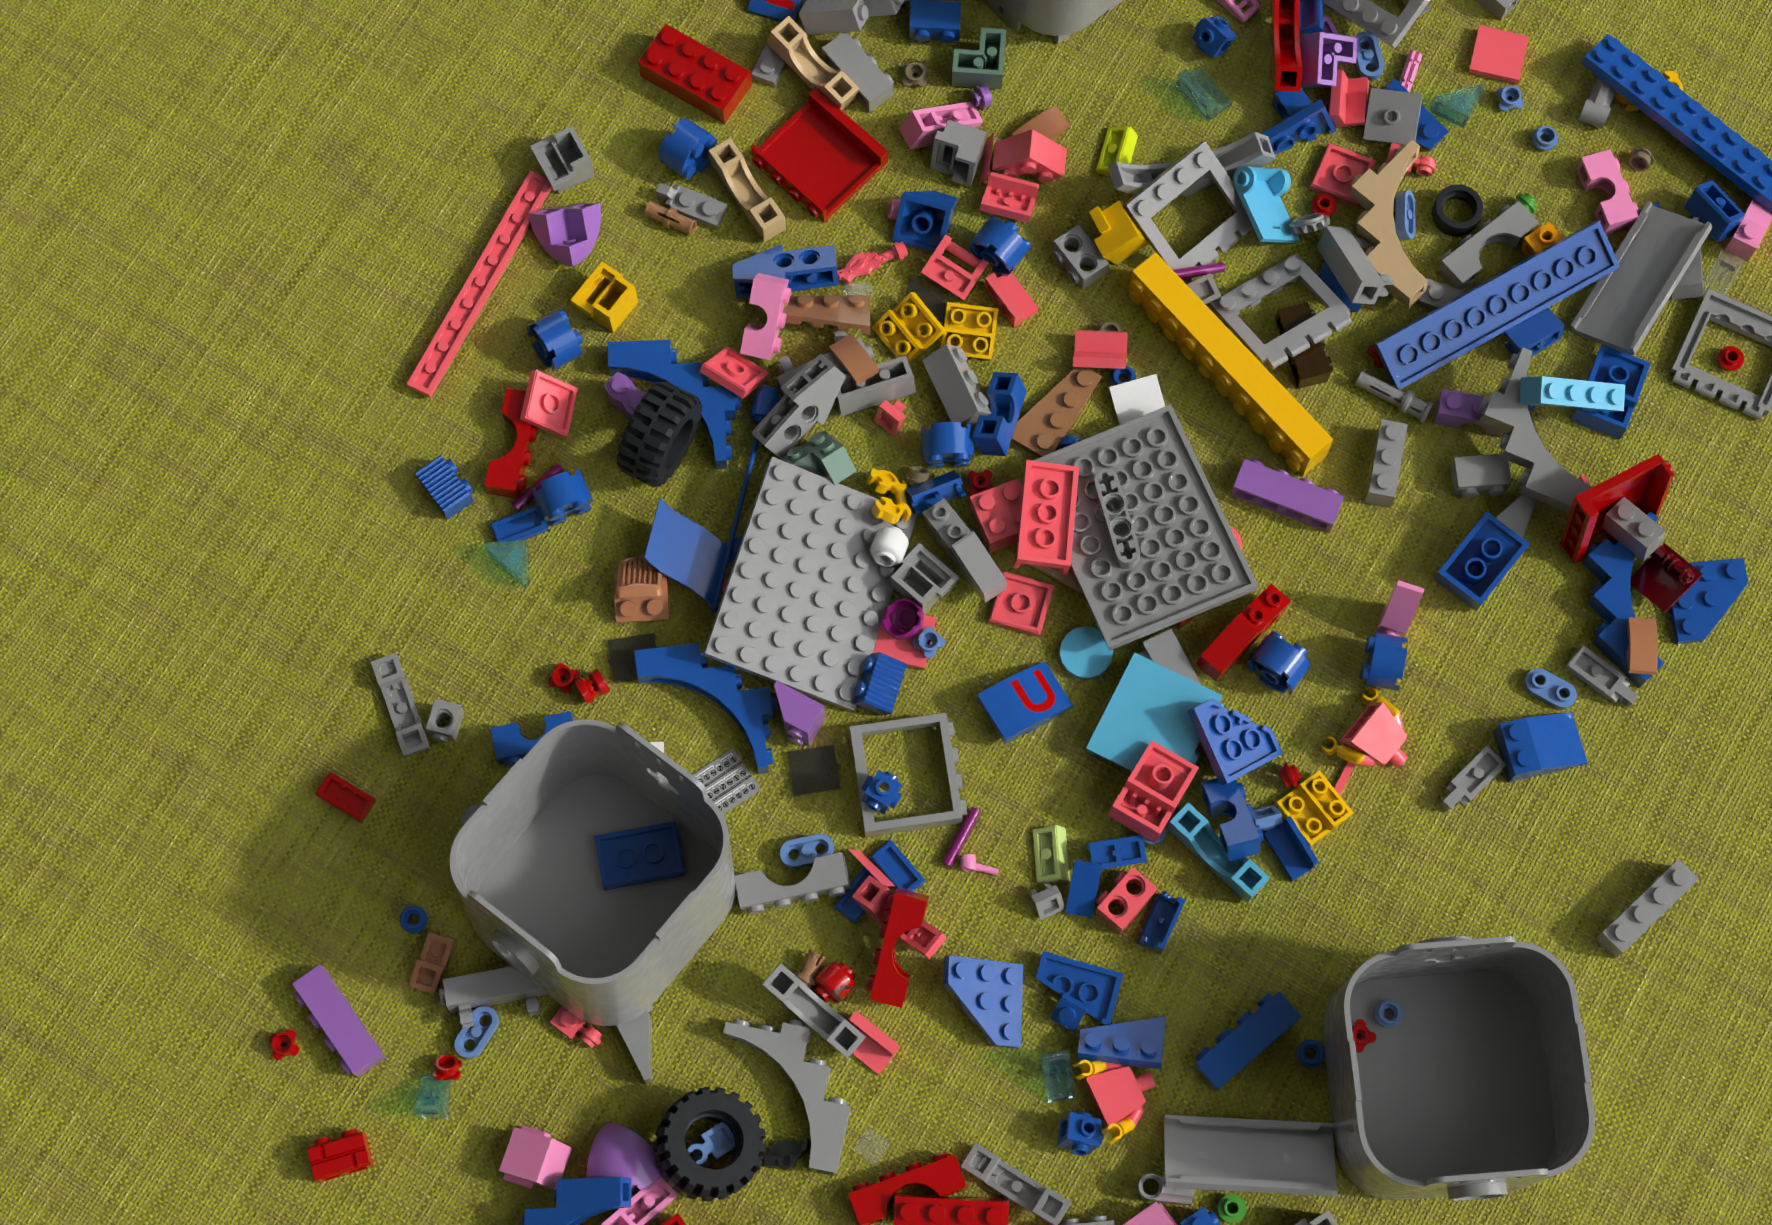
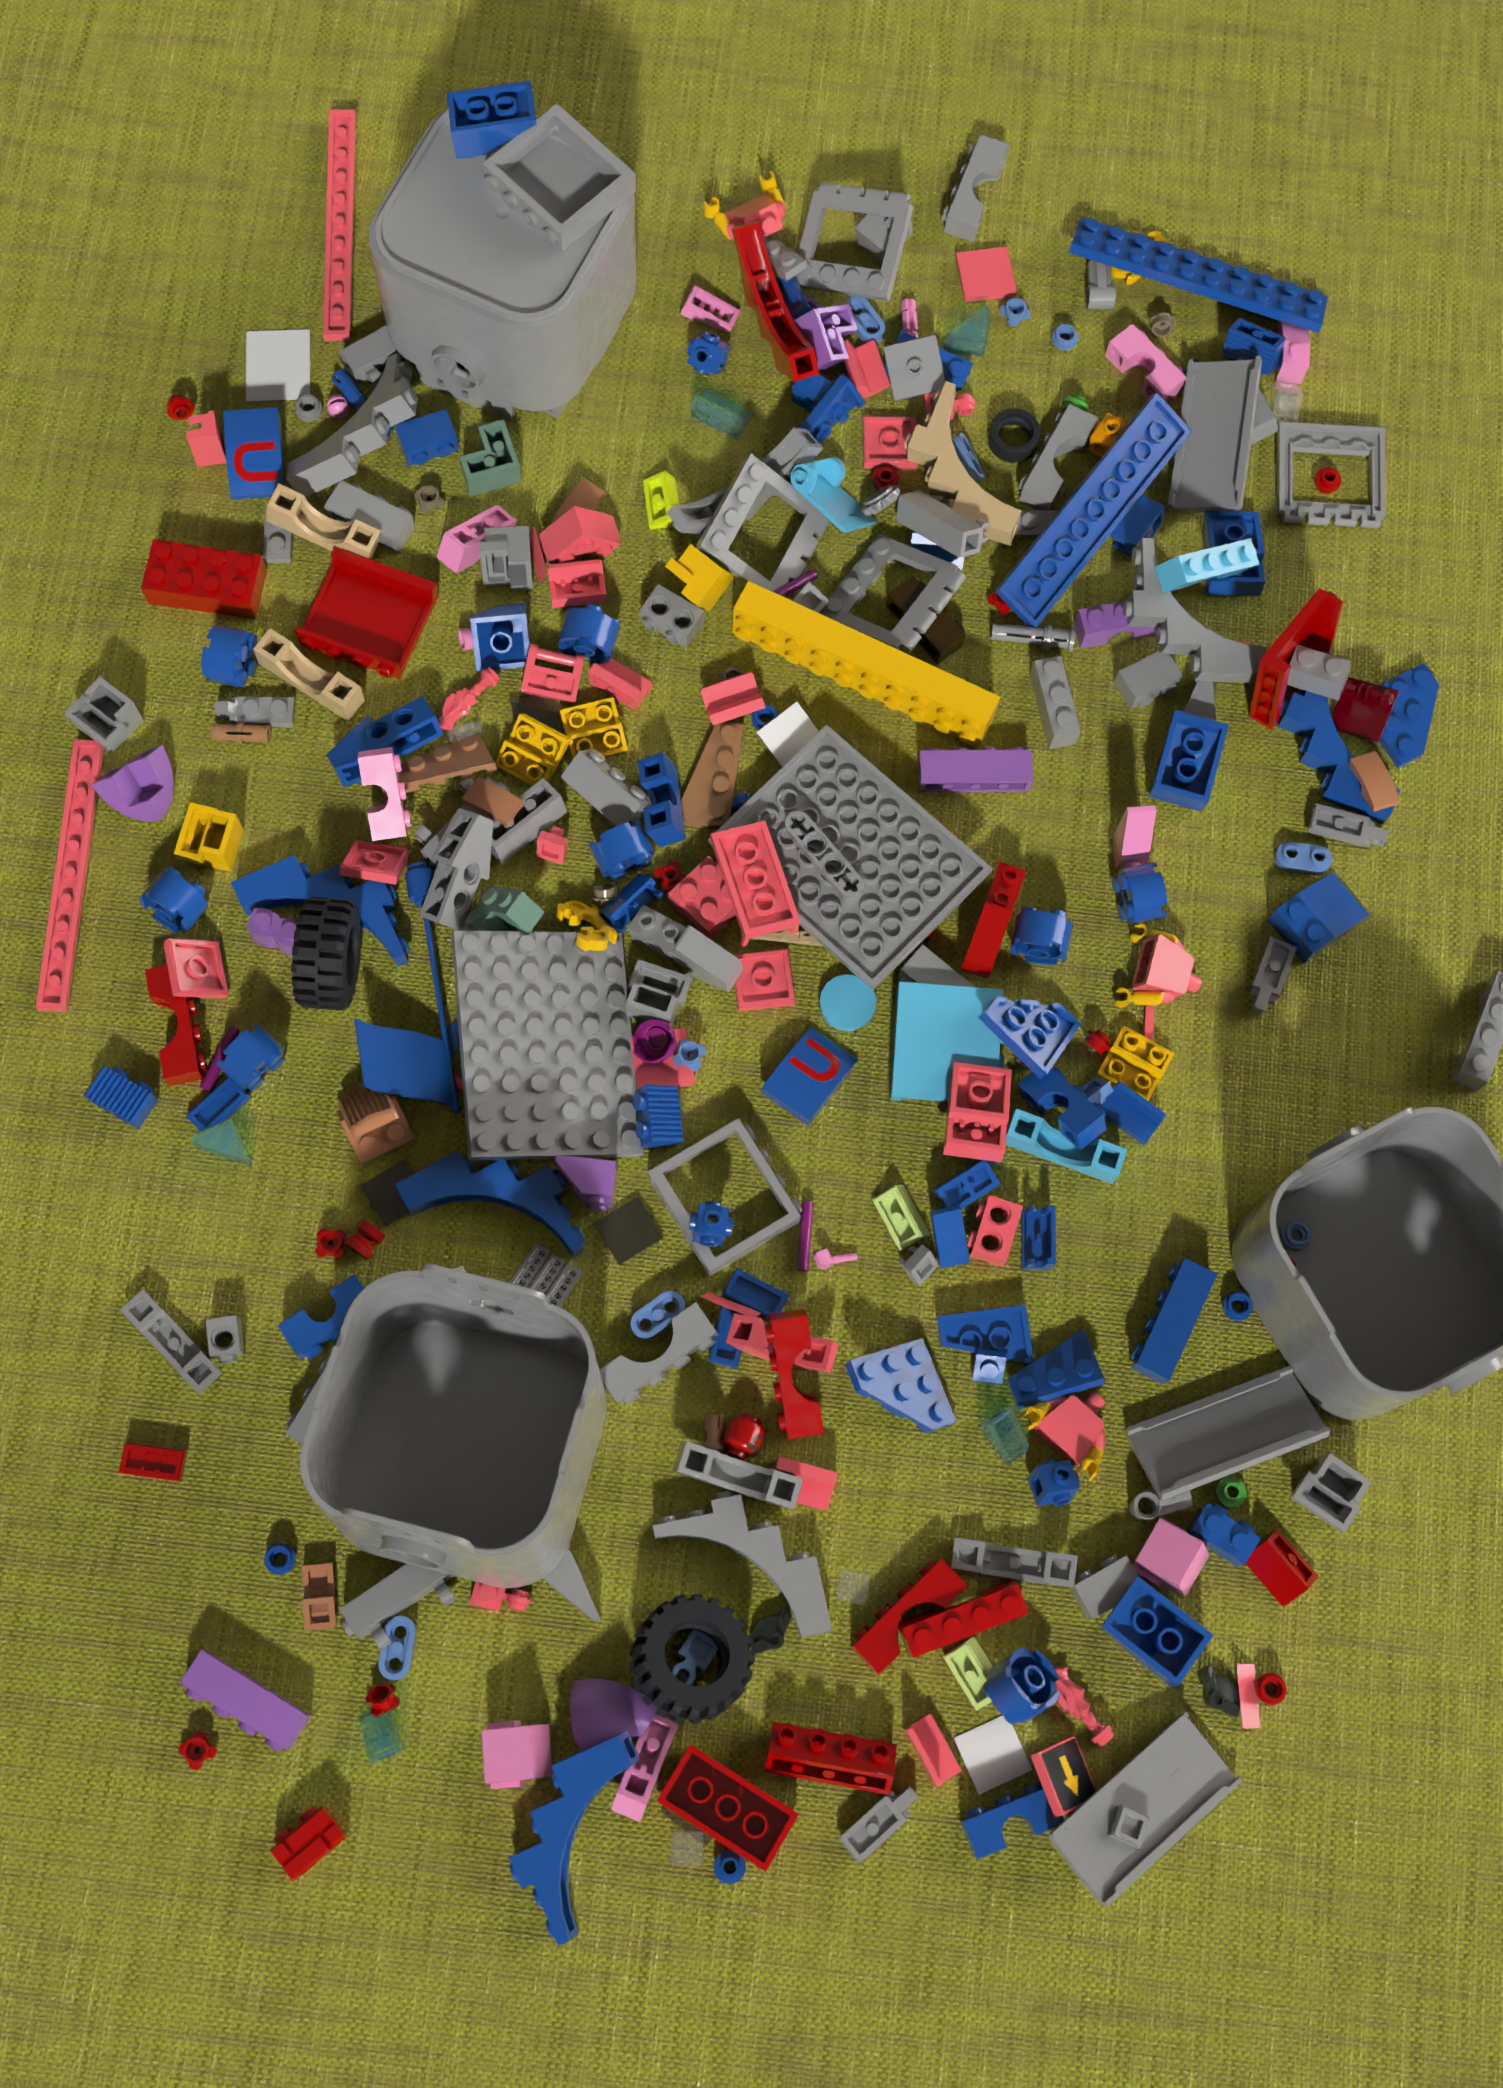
camera: 30 degrees left, 0 degrees up
(639, 855) = (490, 1392): blue tile -> none
(889, 546) = (609, 974): white head -> none
(981, 97) = (505, 496): medium lavender plate -> none

